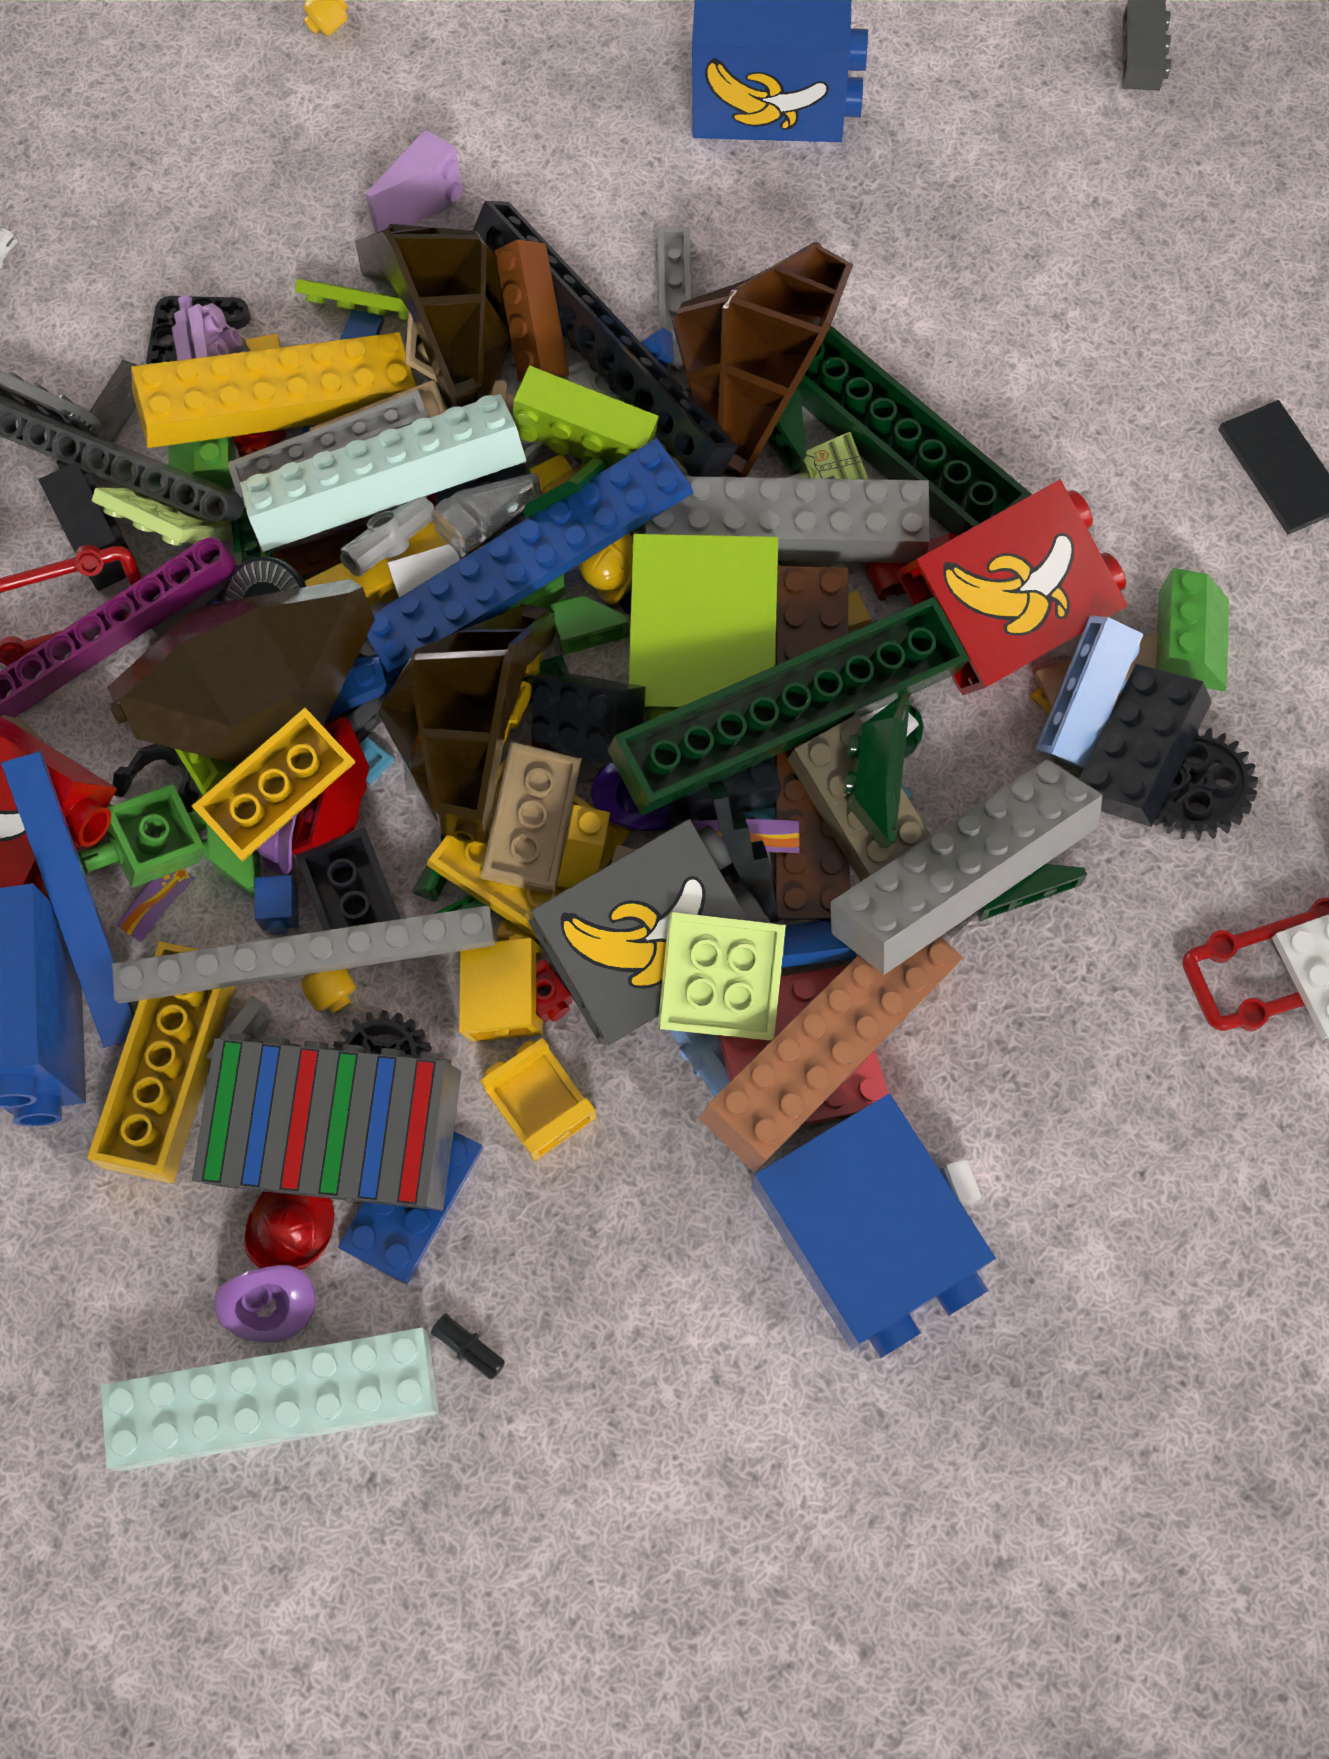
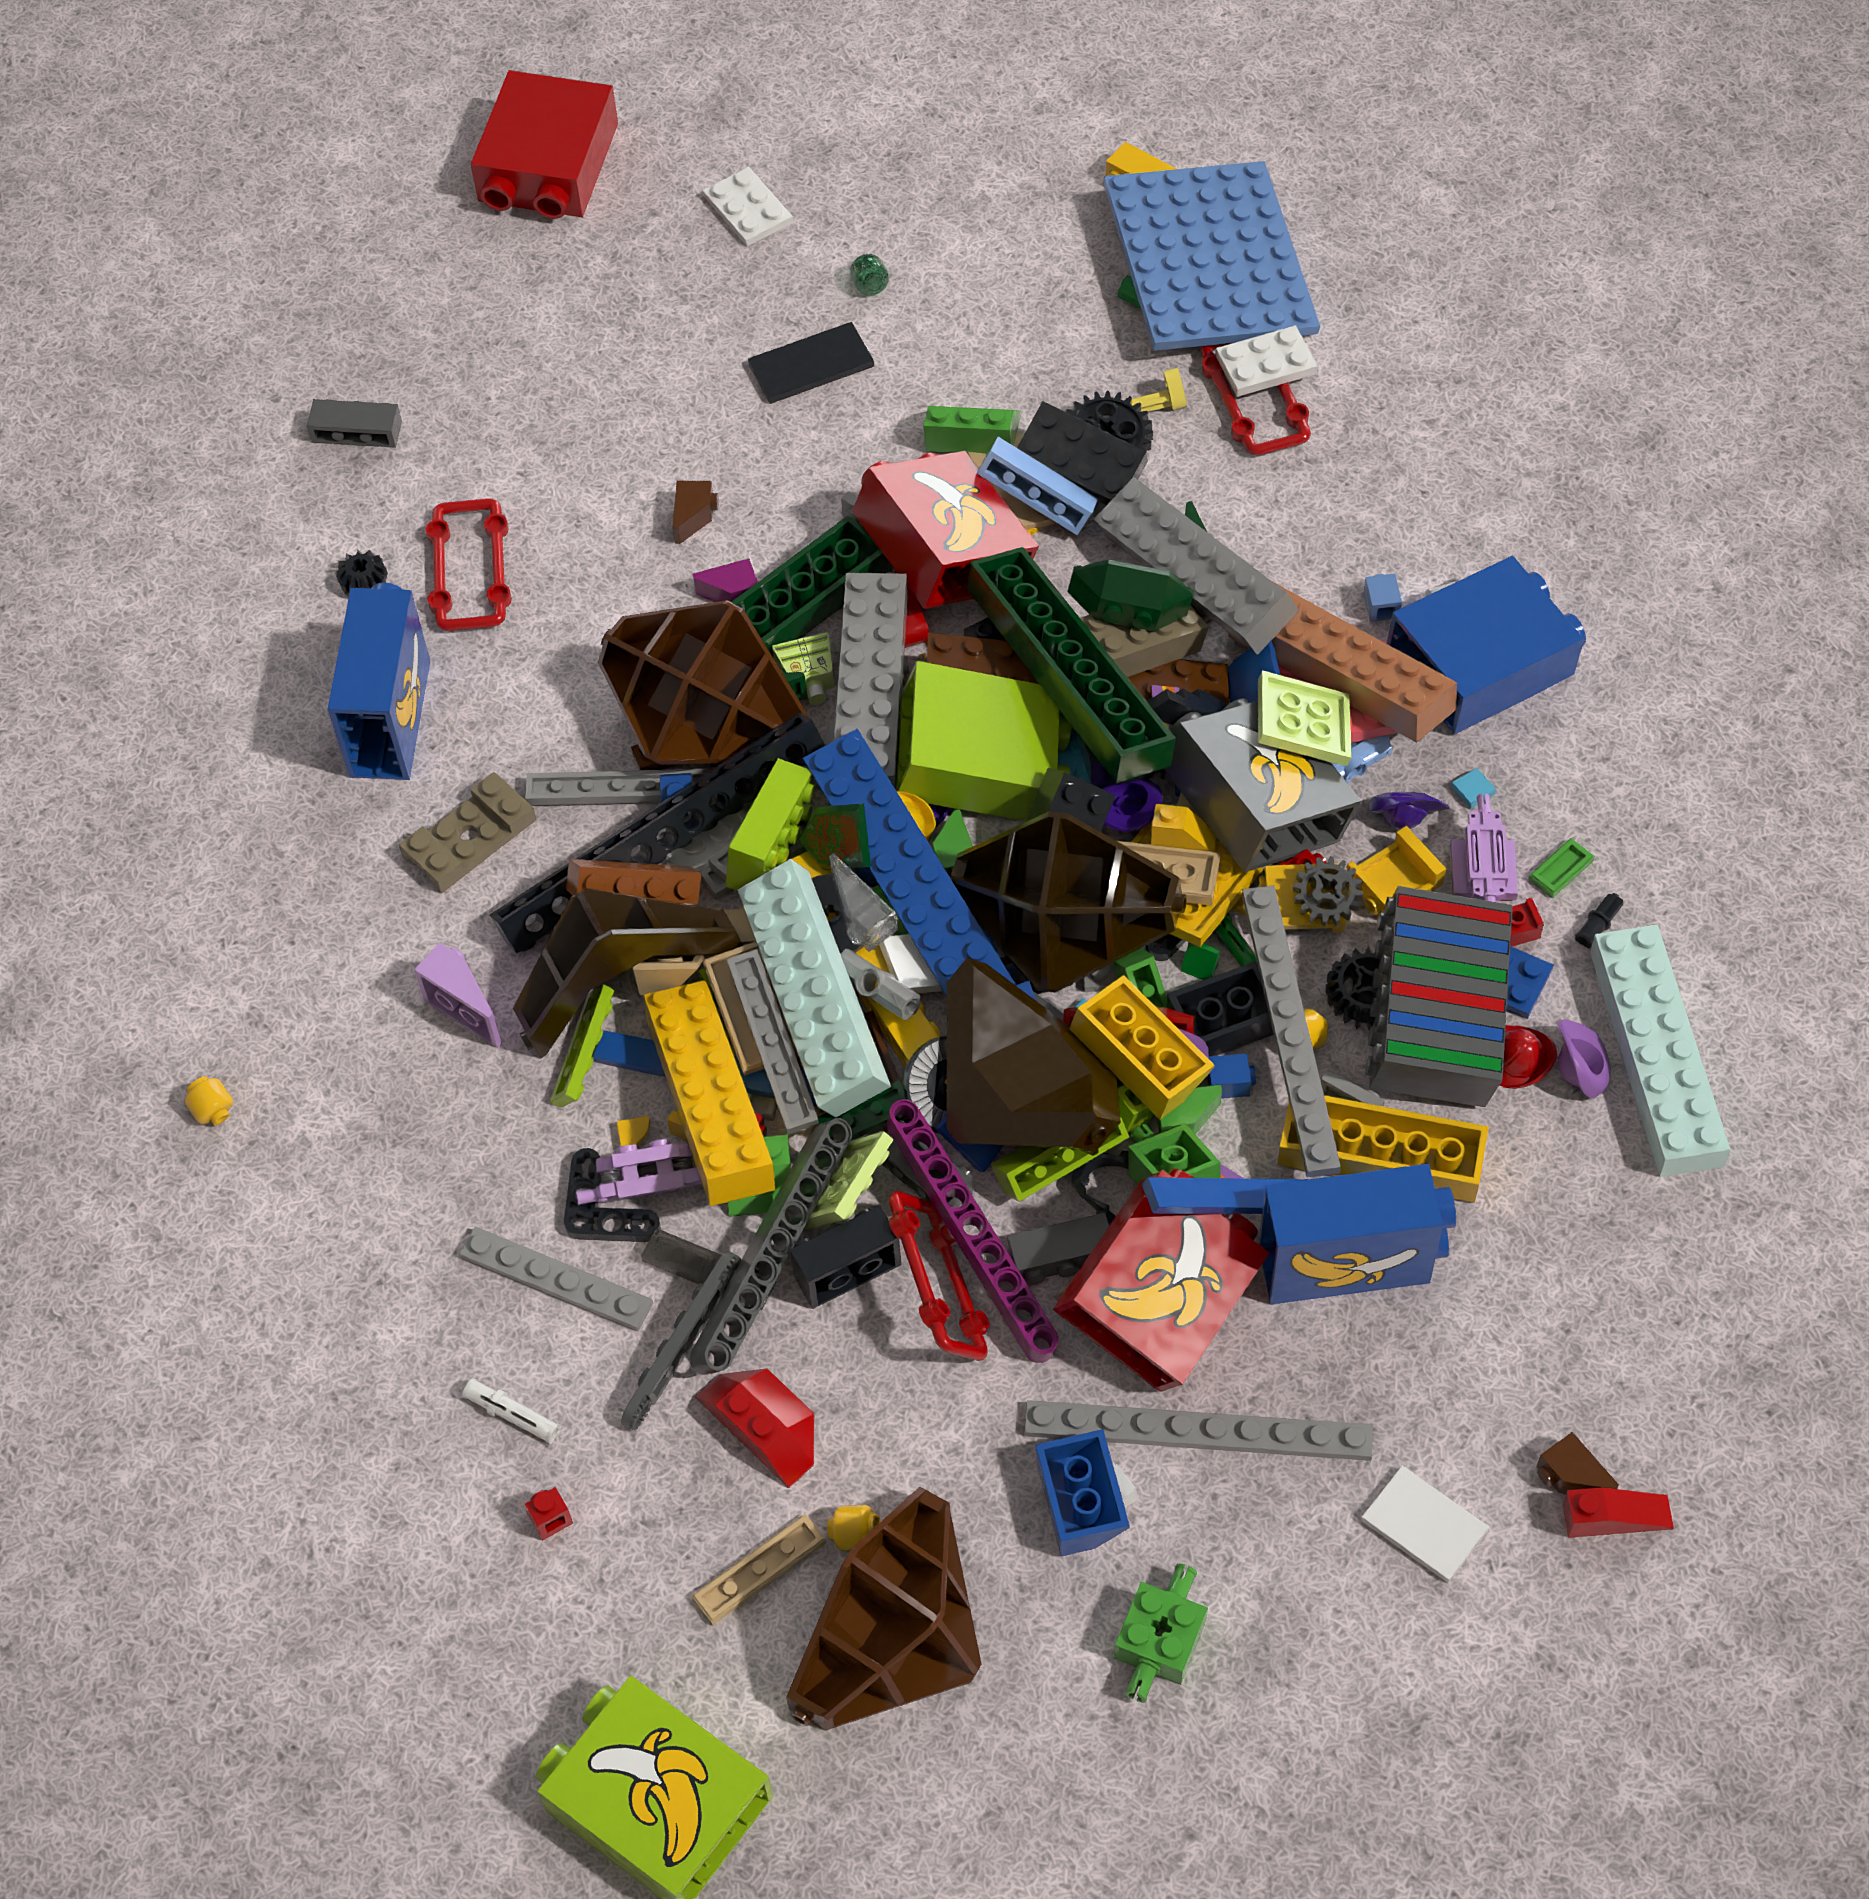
camera: 90 degrees left, 10 degrees down
(85, 725) = (1056, 1248): none -> dark grey brick
(114, 299) = (556, 1278): none -> light grey plate
(396, 814) = (1143, 974): none -> bright green slope
(470, 1251) = (1529, 925): none -> red brick
(503, 1003) = (1336, 882): none -> dark grey gear
(542, 1205) = (1485, 861): none -> lavender piece
(549, 1306) = (1561, 868): none -> bright green tile
(599, 165) = (492, 812): none -> dark tan piece
(647, 1140) = (1405, 808): none -> dark purple hat
(669, 1205) = (1471, 785): none -> medium azure tile
(942, 68) = (361, 571): none -> black gear
(946, 393) = (725, 581): none -> magenta slope
(956, 1105) = (1381, 596): none -> medium blue brick
(1003, 130) = (497, 594): none -> red bar
(1047, 353) = (692, 508): none -> reddish brown slope
(1268, 862) = (1171, 397): none -> light yellow piece

